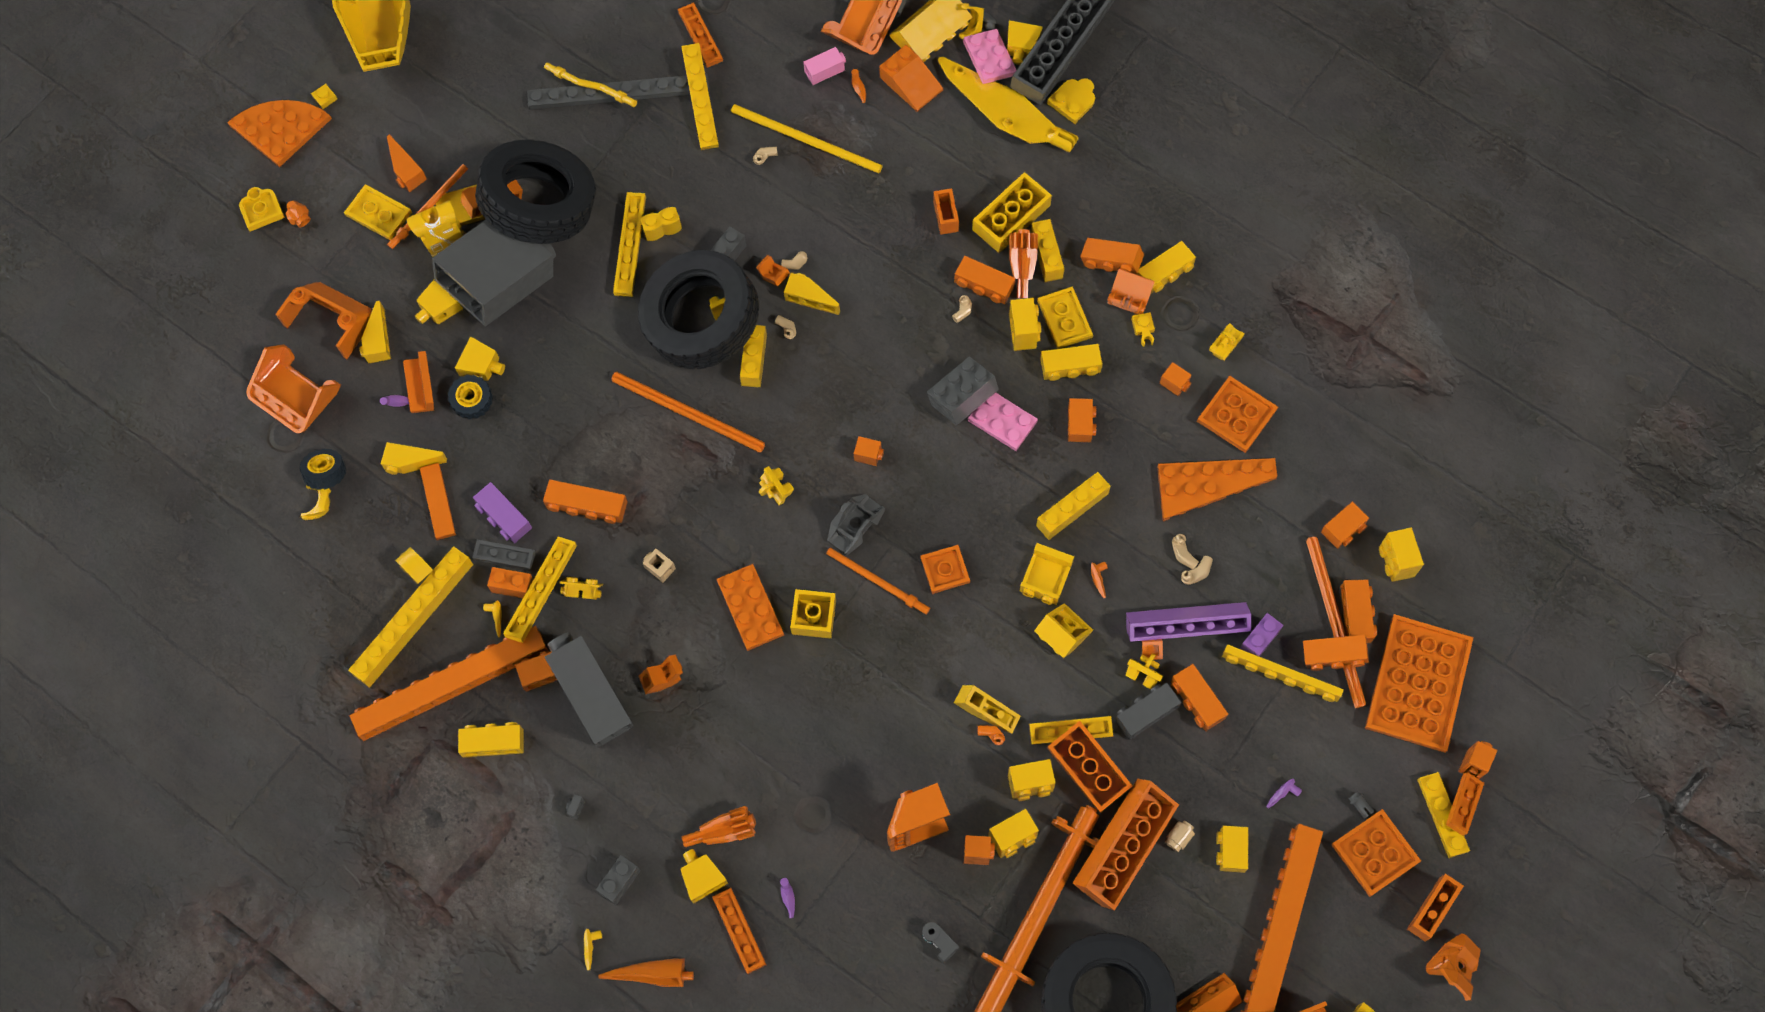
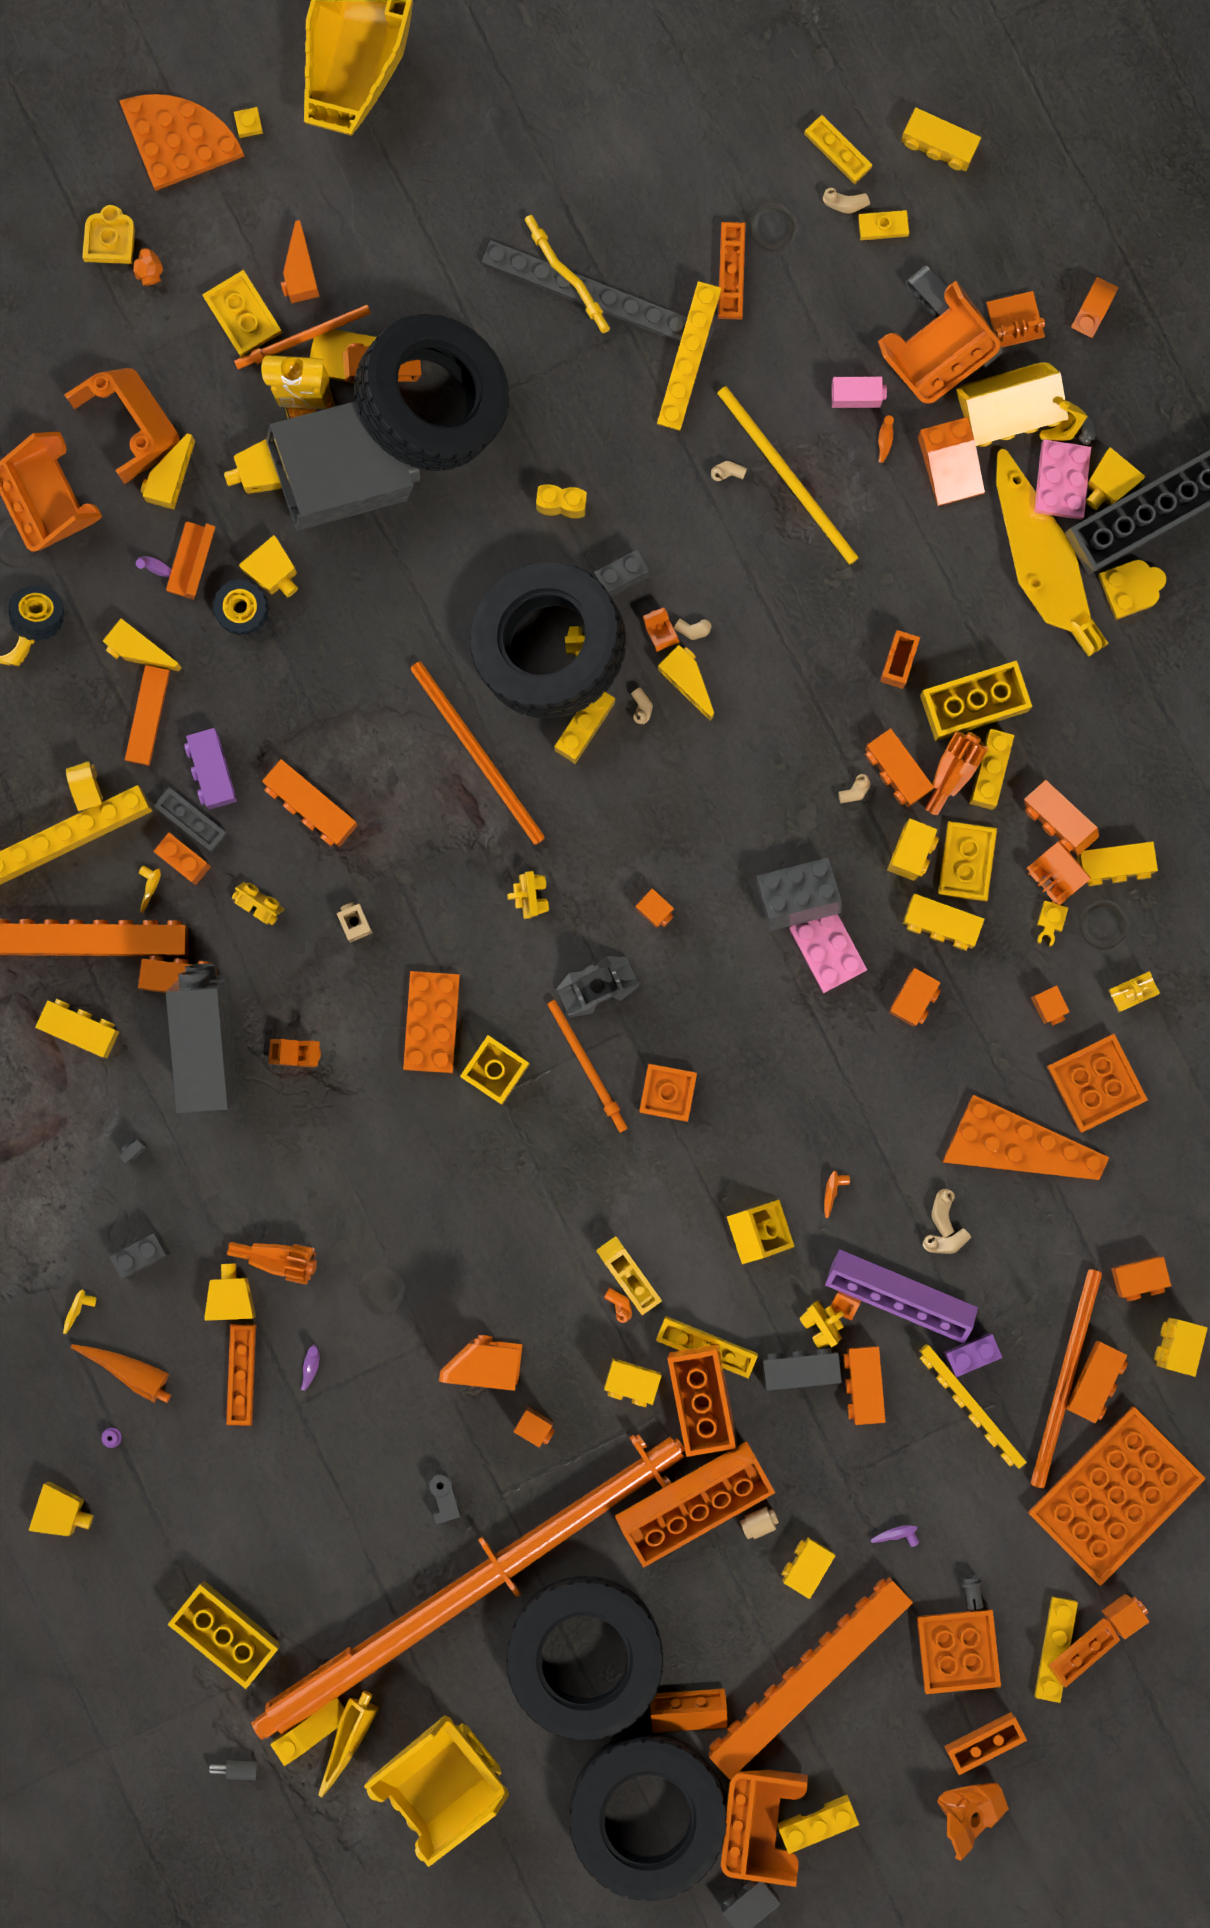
camera: 25 degrees right, 15 degrees up
(540, 589) = (210, 885): yellow plate -> none
(629, 244) = (513, 507): yellow plate -> none
(1013, 834) = (581, 1430): yellow brick -> none
(1046, 574) = (776, 1158): yellow panel -> none
(1073, 505) = (849, 1095): yellow brick -> none
(1336, 652) = (1043, 1417): orange brick -> none

